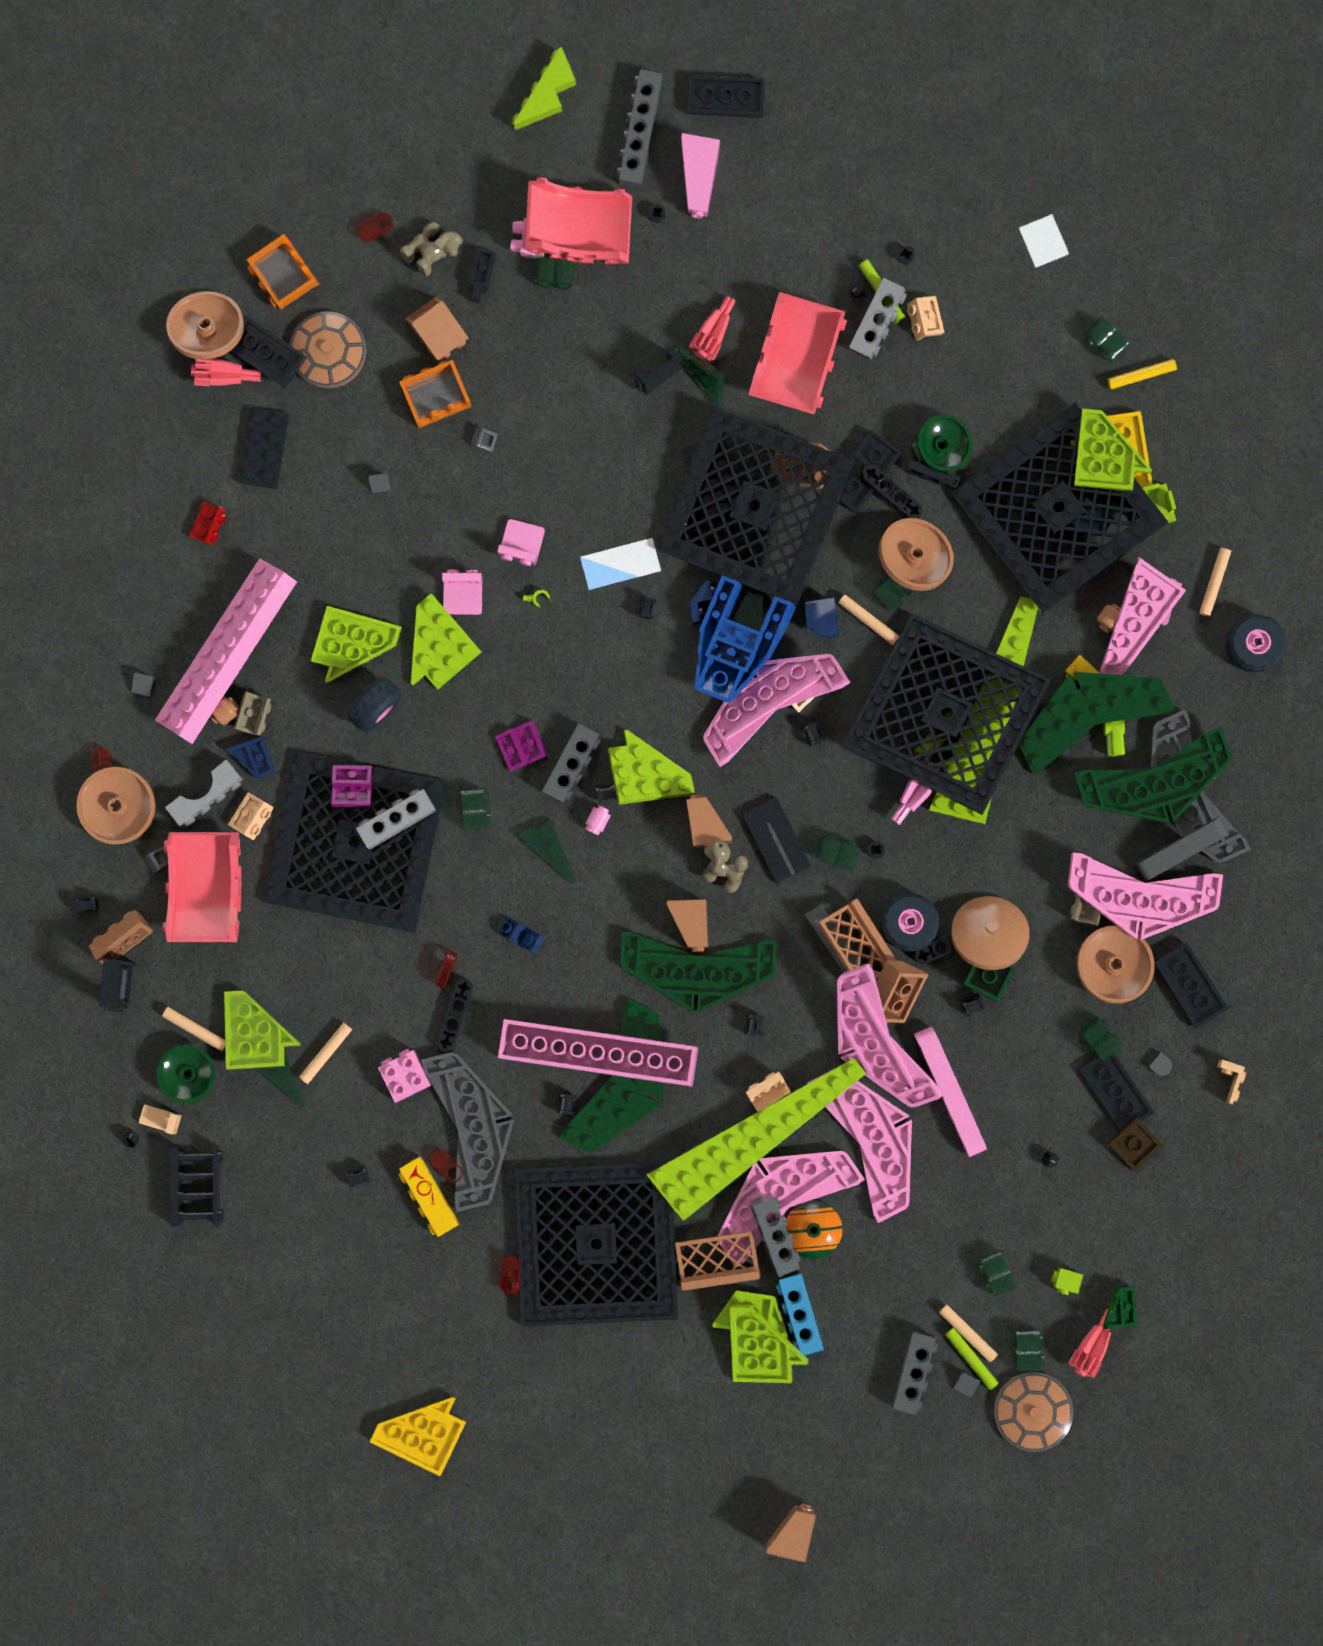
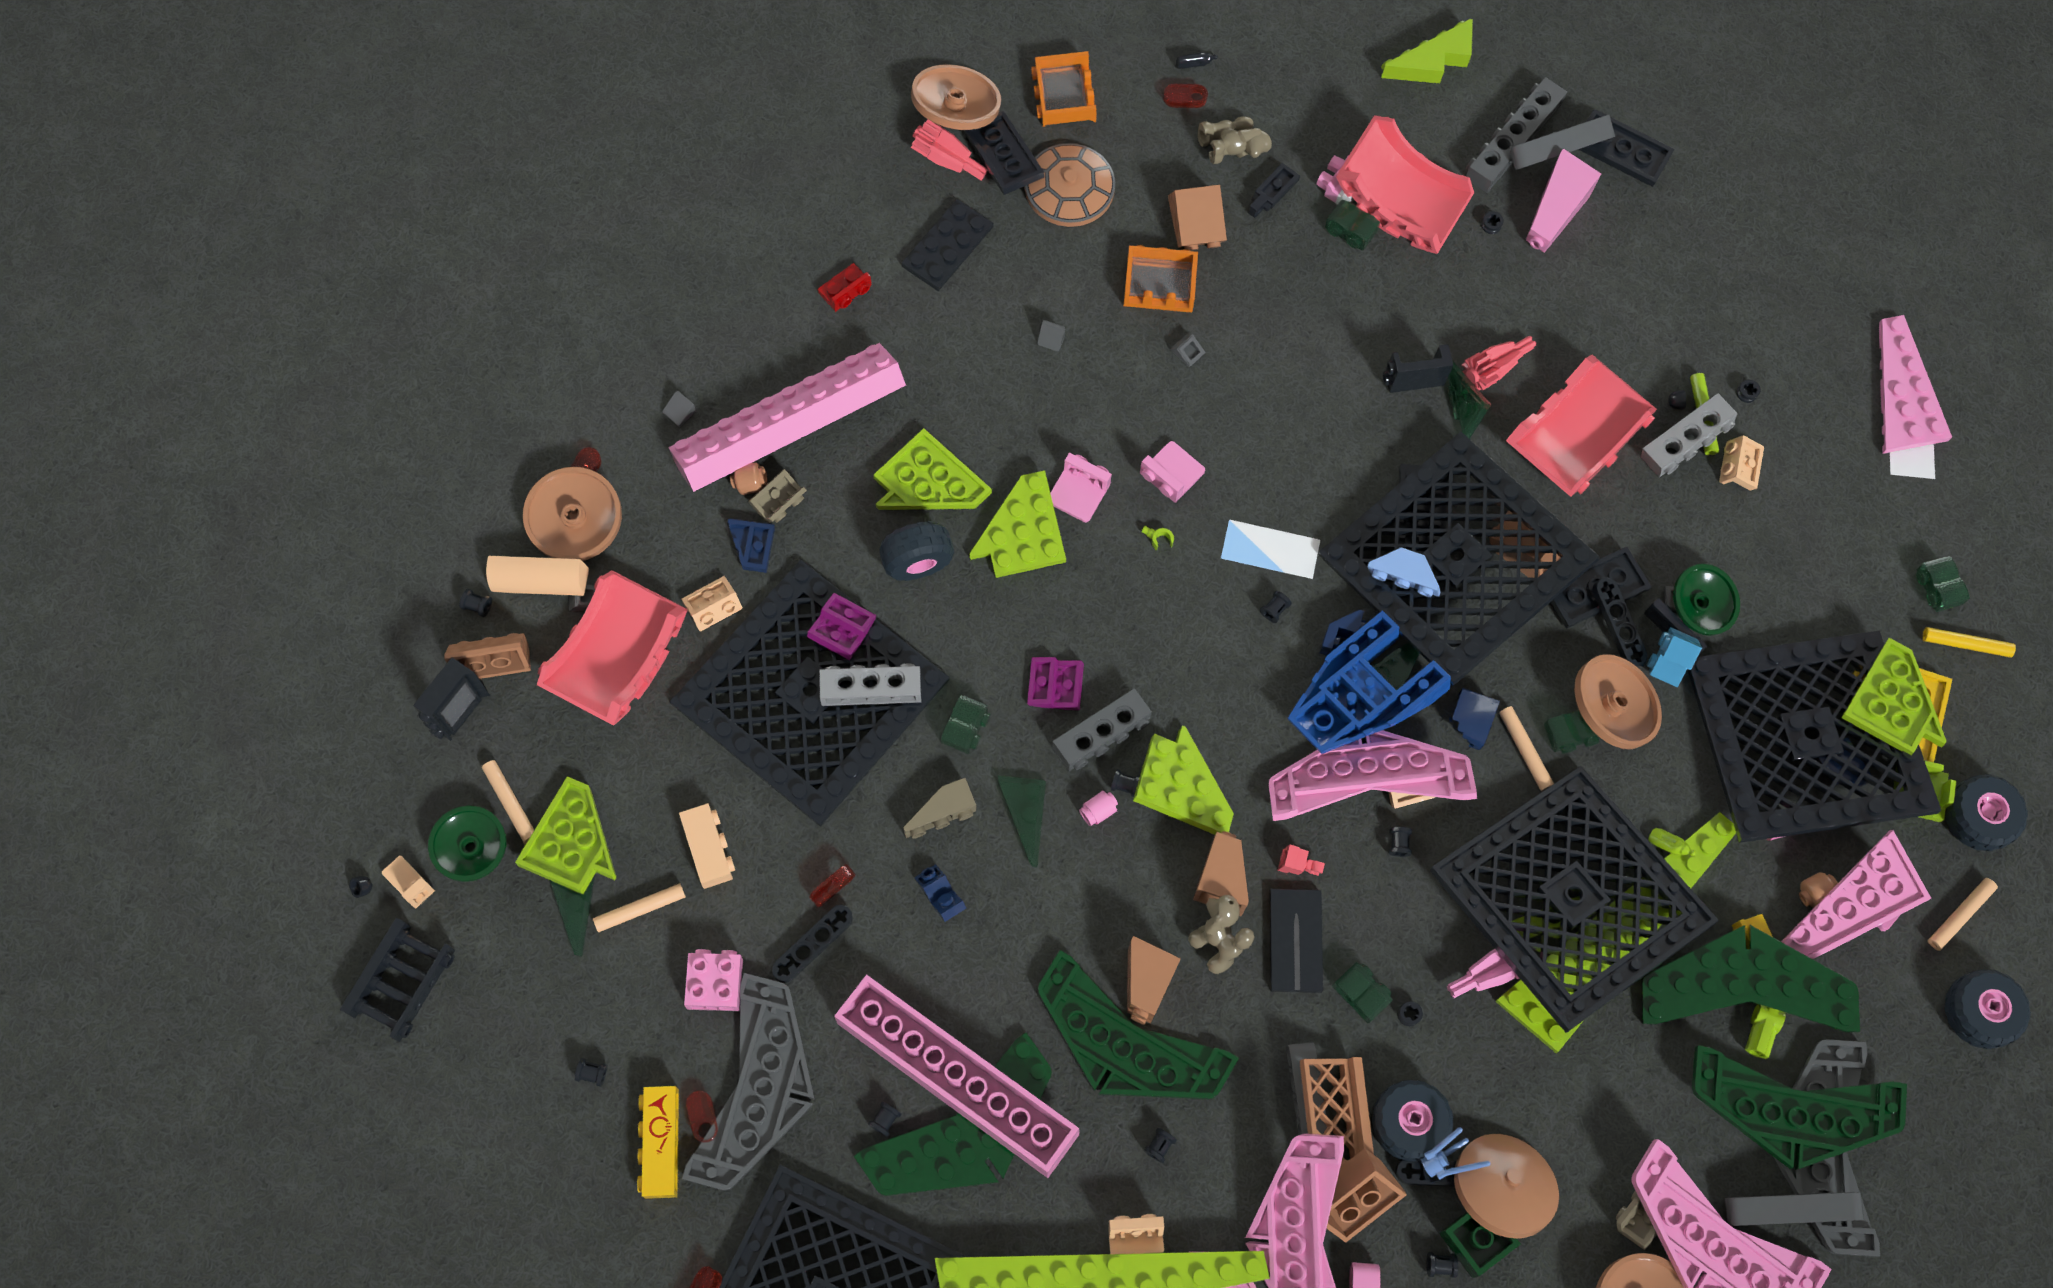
camera: 20 degrees right, 15 degrees down
(118, 863) = (536, 575): none -> light nougat brick
(224, 779) = (704, 550): light grey arch -> none
(347, 987) = (707, 845): none -> light nougat brick
(371, 189) = (1194, 60): none -> black piece
(493, 872) = (945, 805): none -> dark tan slope
(678, 122) = (1568, 139): none -> dark grey beam
(725, 537) = (1407, 571): none -> light blue slope
(749, 785) = (1295, 861): none -> coral piece
(938, 942) = (1436, 1160): none -> medium blue plant
(940, 499) = (1674, 656): none -> dark azure brick
(996, 637) = (1669, 842): none -> lime piece
(1024, 199) = (1907, 397): none -> bright pink wing
(1202, 501) = (1986, 813): none -> black wheel

